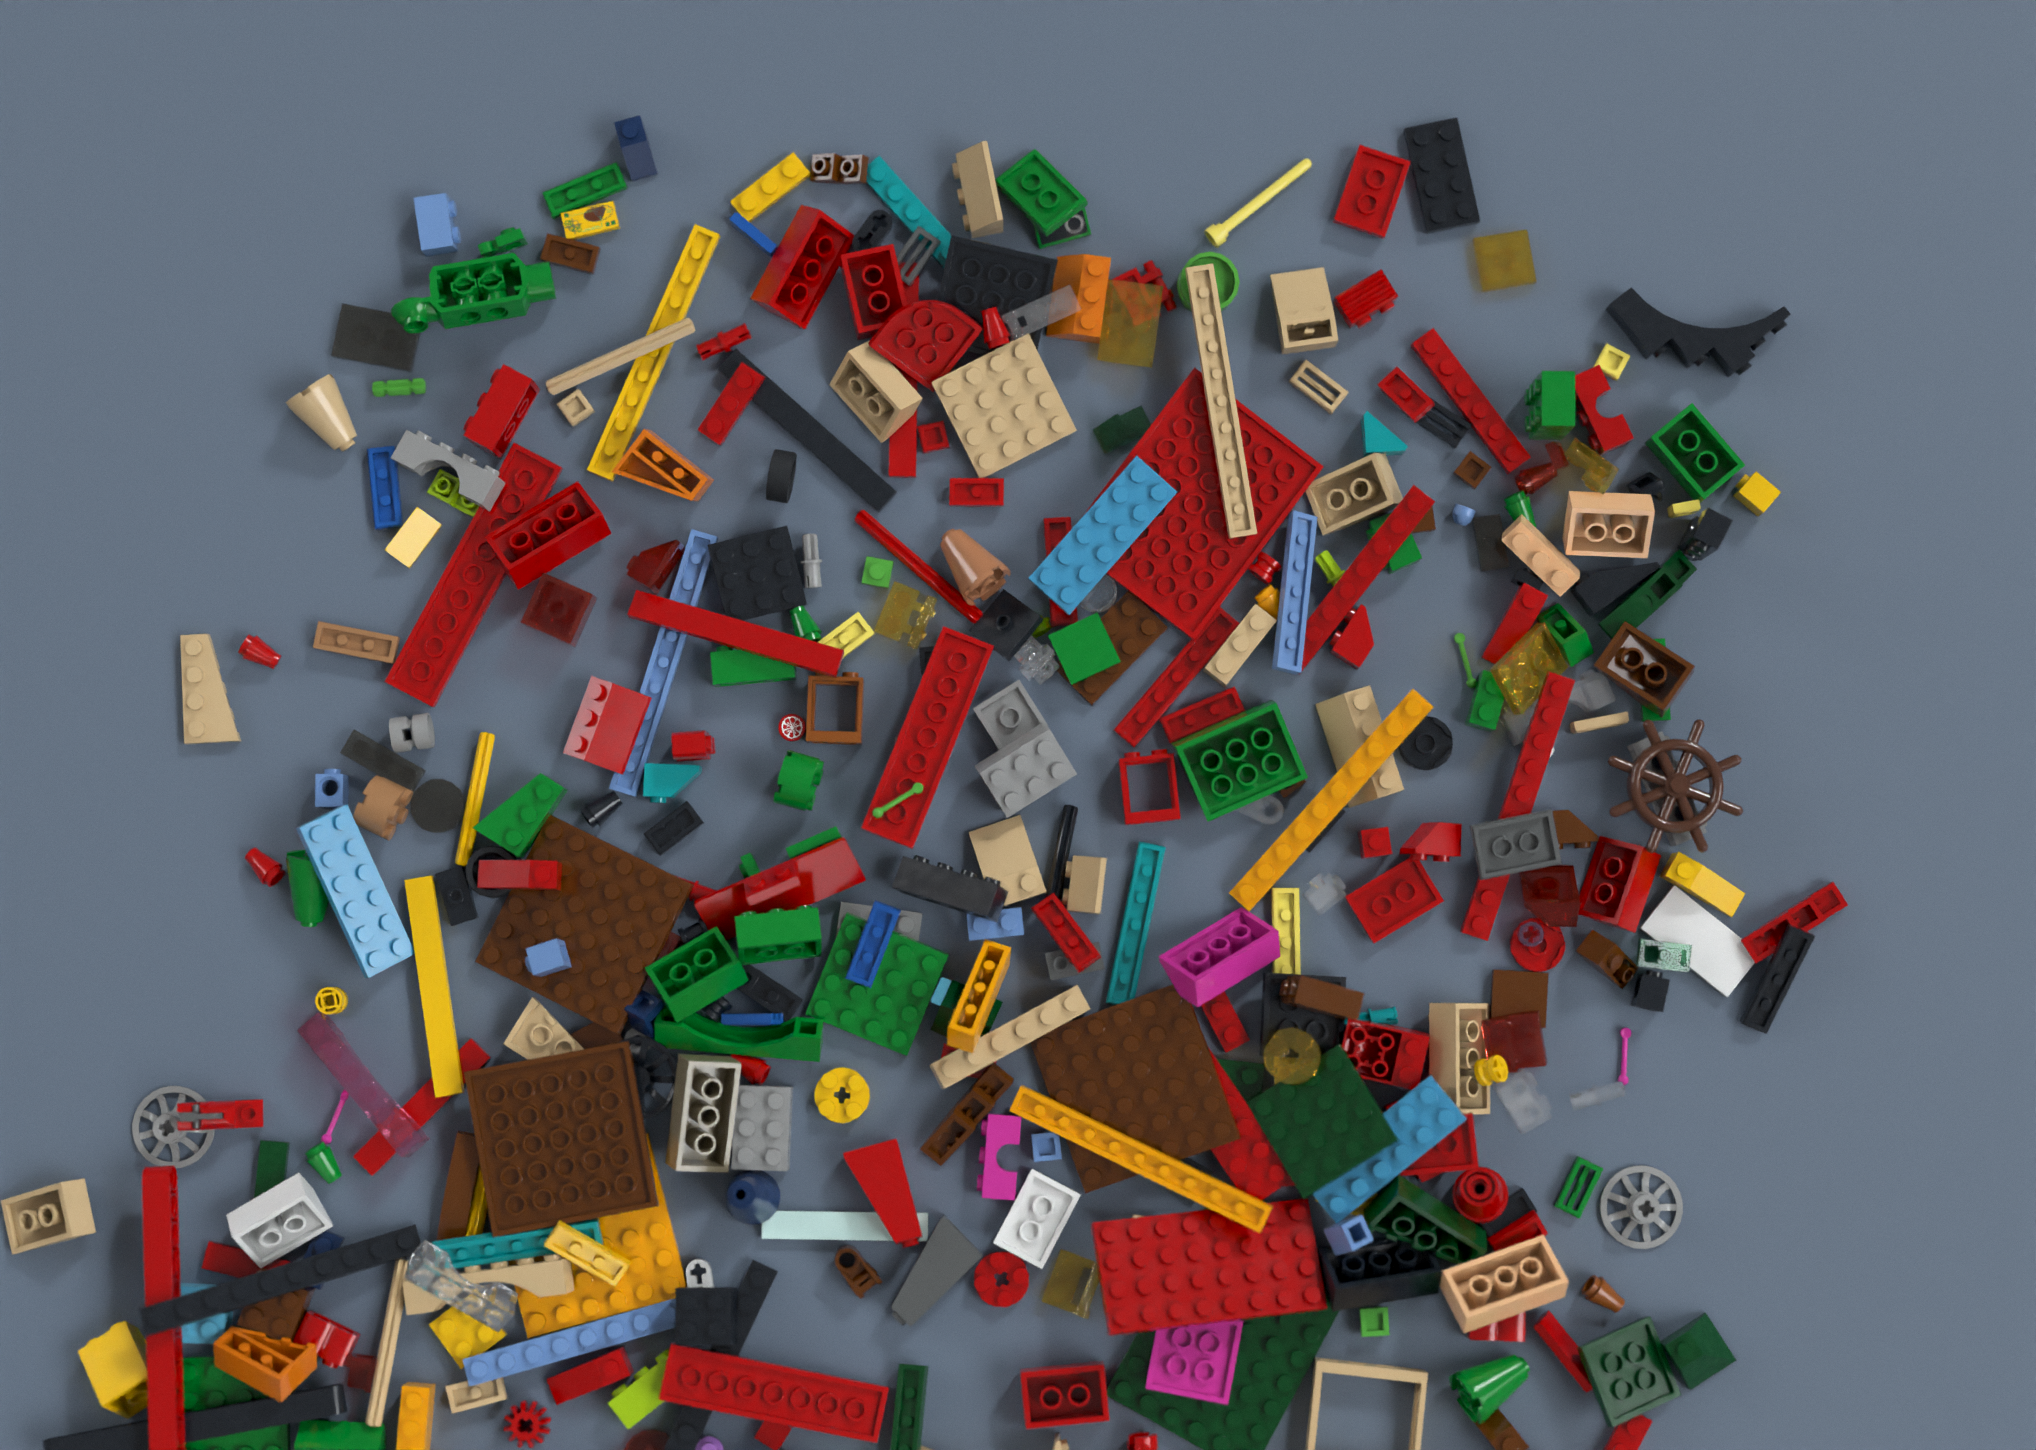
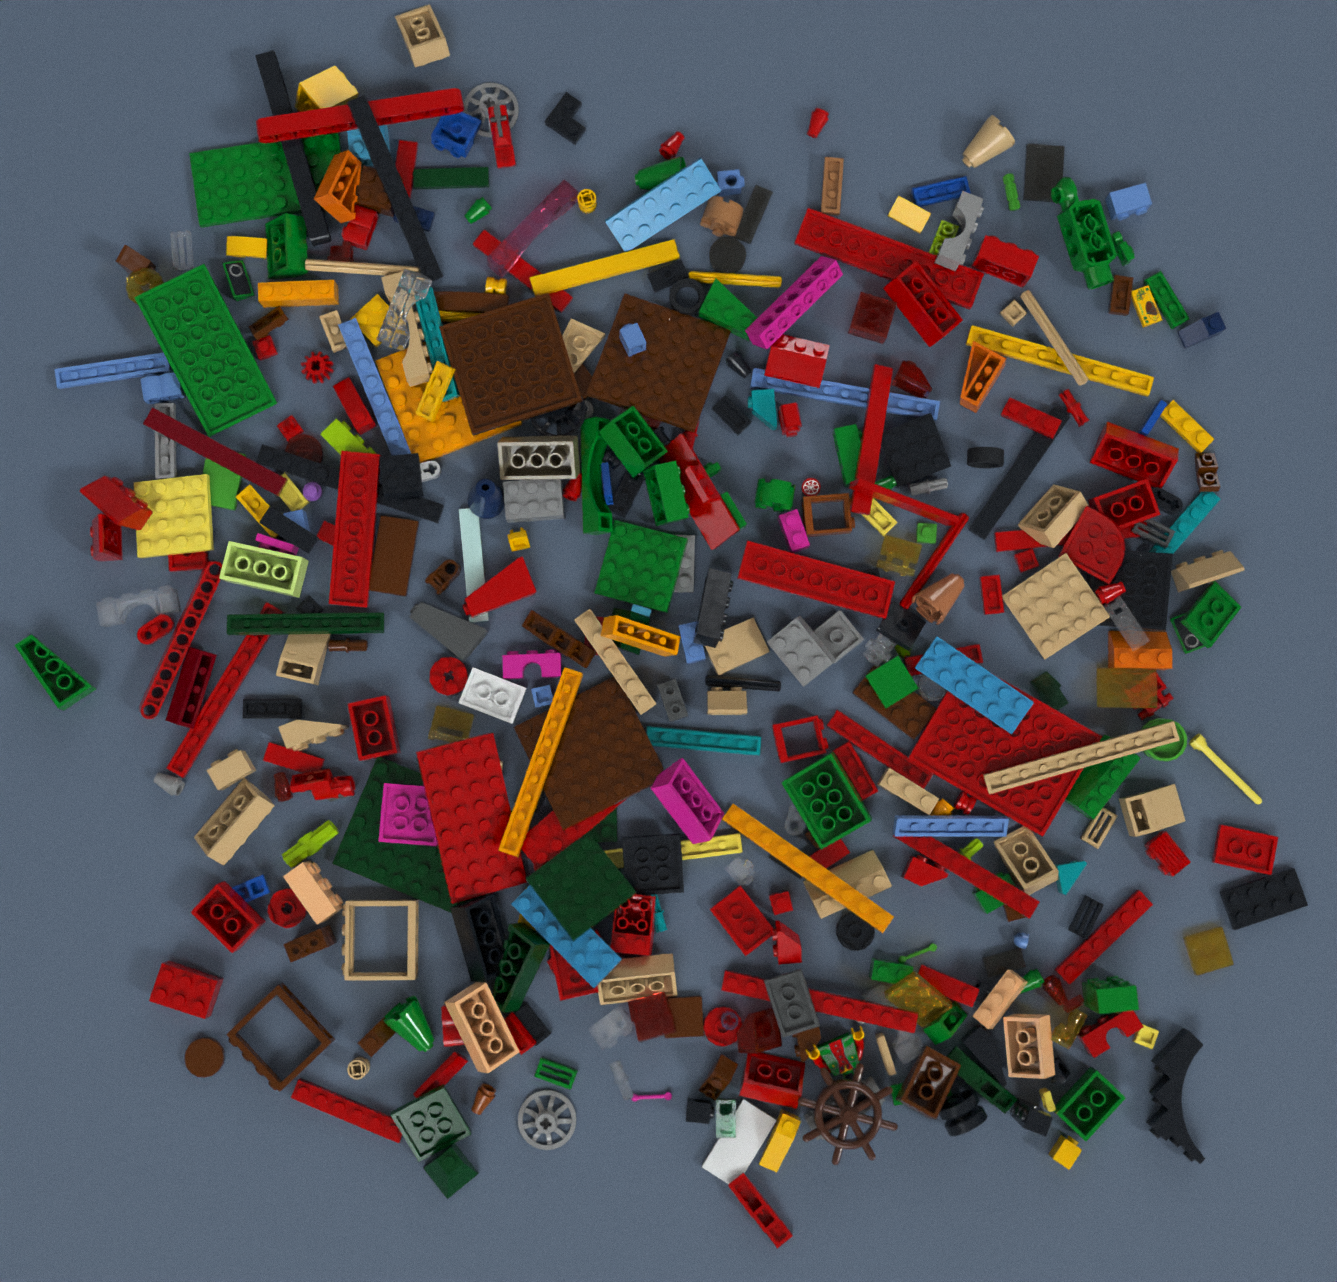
camera: 80 degrees right, 0 degrees up
(203, 1024) = (562, 119): none -> black plate
(205, 701) = (780, 91): tan wing -> none
(205, 1182) = (456, 133): none -> blue plate
(278, 1220) = (435, 184): white slope -> none
(327, 1137) = (494, 210): dark pink hinge -> none
(421, 732) = (775, 232): light grey wheel -> none
(441, 1148) = (496, 286): none -> yellow wheel
(520, 874) = (687, 314): red slope -> none
(523, 719) = (794, 302): none -> dark pink brick
(643, 1011) = (603, 408): dark blue panel -> none
(817, 1156) = (518, 540): none -> yellow tile
(817, 1340) = (393, 555): none -> reddish brown tile
(832, 599) = (904, 502): none -> red tile
(853, 760) = (793, 531): none -> dark pink brick
(853, 1084) = (569, 560): yellow plate -> none
(873, 944) = (668, 559): blue tile -> none
(917, 789) = (779, 576): bright green hinge -> none
(940, 1421) = (347, 645): none -> reddish brown axle
(1066, 932) = (691, 692): red tile -> none
(1225, 1022) = (643, 810): red plate -> none
(1258, 379) = (1099, 783): none -> green slope
(1282, 1069) = (618, 869): clear yellow plate -> none
(1315, 764) = (830, 854): none -> red tile
(1321, 997) = (667, 876): reddish brown brick -> none
(1348, 1235) = (504, 913): medium blue brick -> none
(1374, 1321) = (447, 938): bright green plate -> none
(1406, 394) = (1102, 890): red plate -> none
(1472, 470) = (1054, 943): reddish brown plate -> none
(1484, 1206) = (534, 1006): red piece -> none
(1491, 1070) = (630, 1002): yellow wheel -> none
(1592, 786) = (840, 1053): none -> torso
(1690, 628) = (962, 1113): none -> black wheel
(1777, 978) = (719, 1202): black tile -> none

